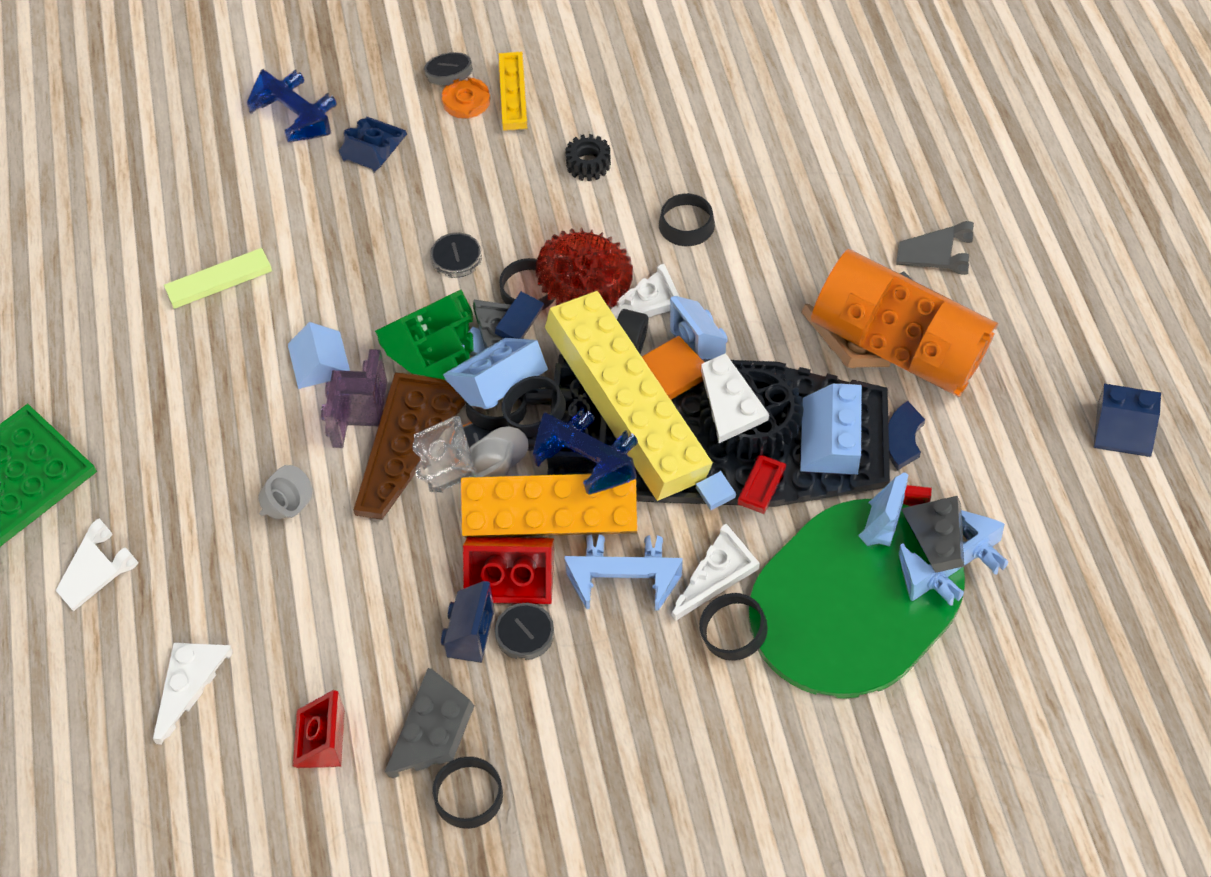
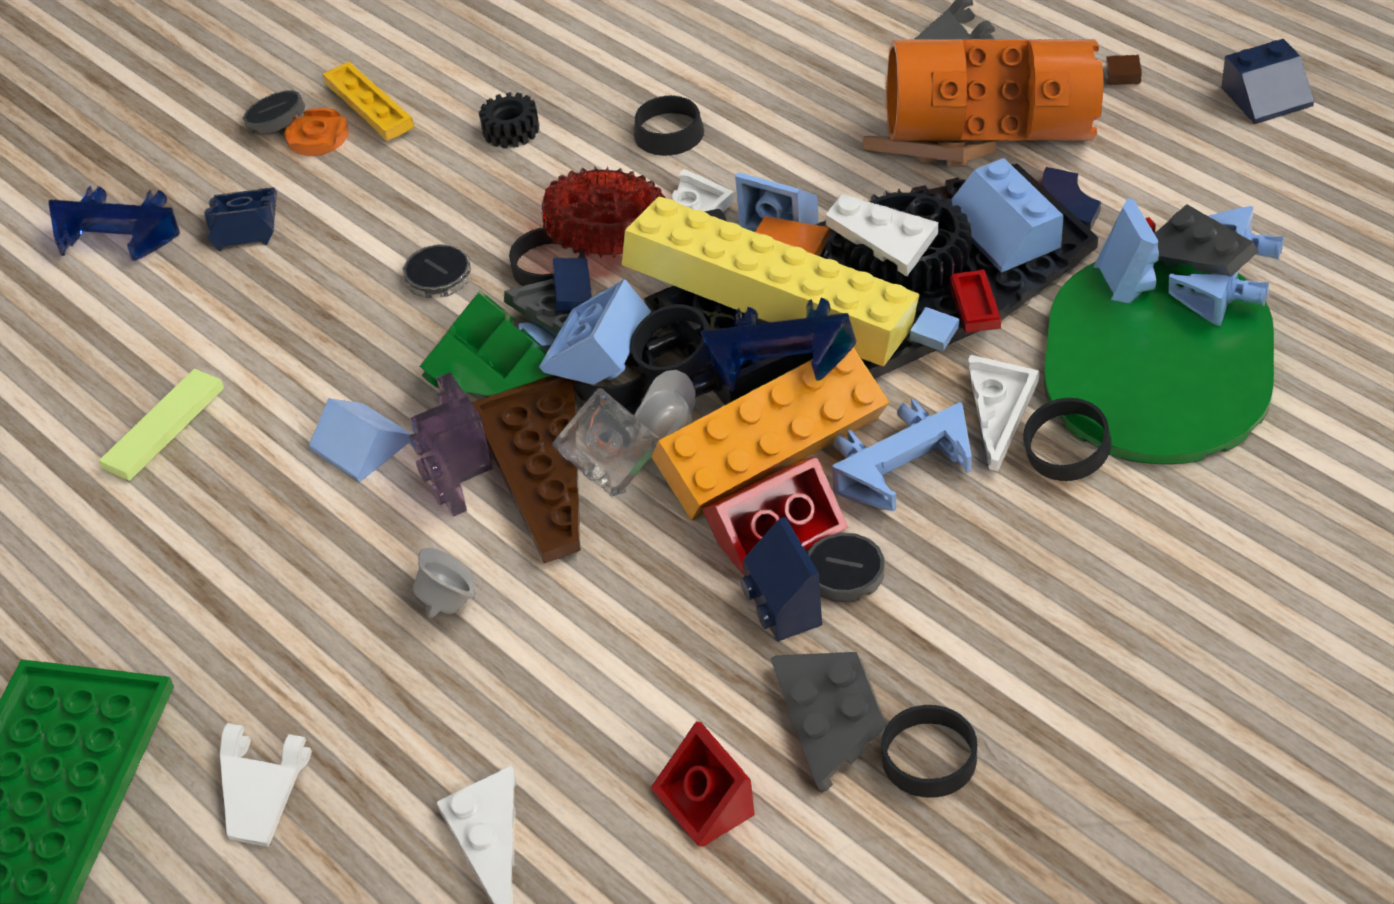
camera: 30 degrees left, 10 degrees down
(1037, 348) = (1123, 69): none -> reddish brown tile

